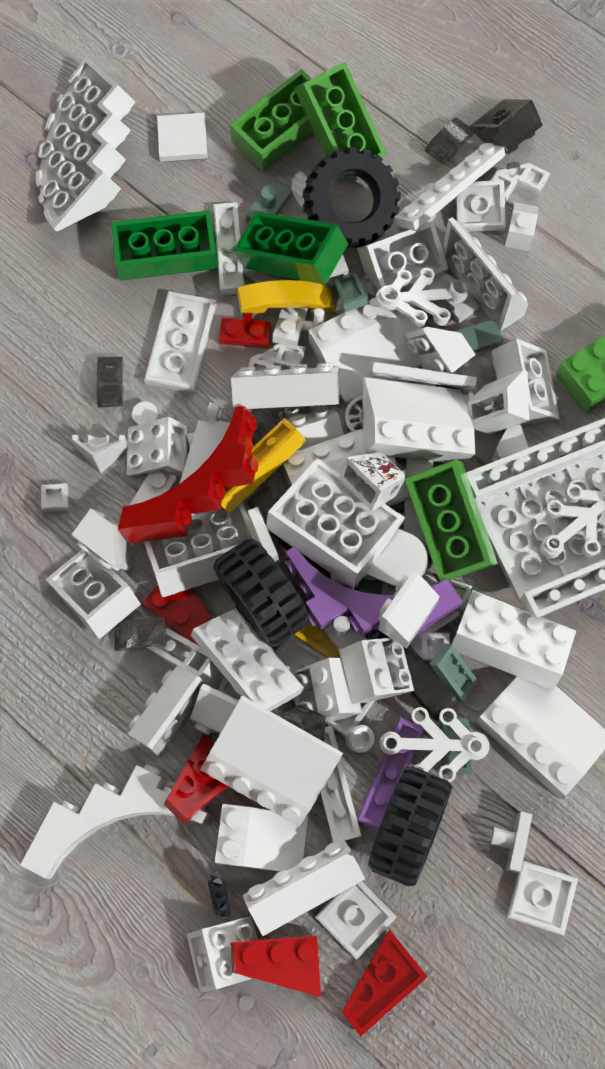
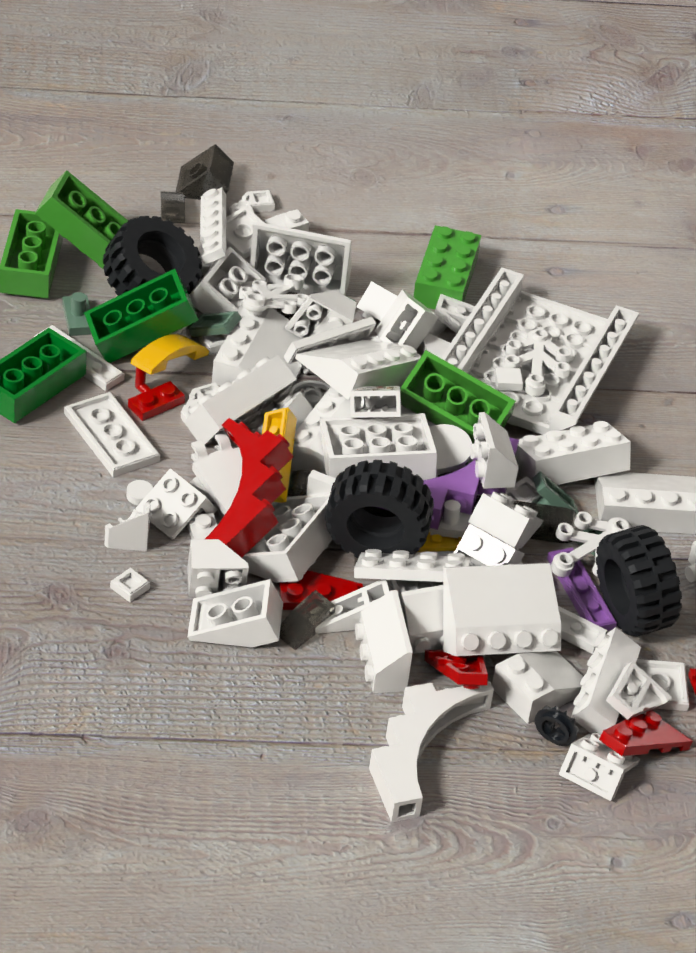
camera: 50 degrees left, 30 degrees down
(110, 381) = (88, 485): clear smoke slope -> none
(292, 322) = (189, 374): white plate -> none
(305, 924) = (636, 692): none -> white wing
(535, 523) = (508, 379): none -> white tile
(572, 412) = (452, 312): none -> white wing

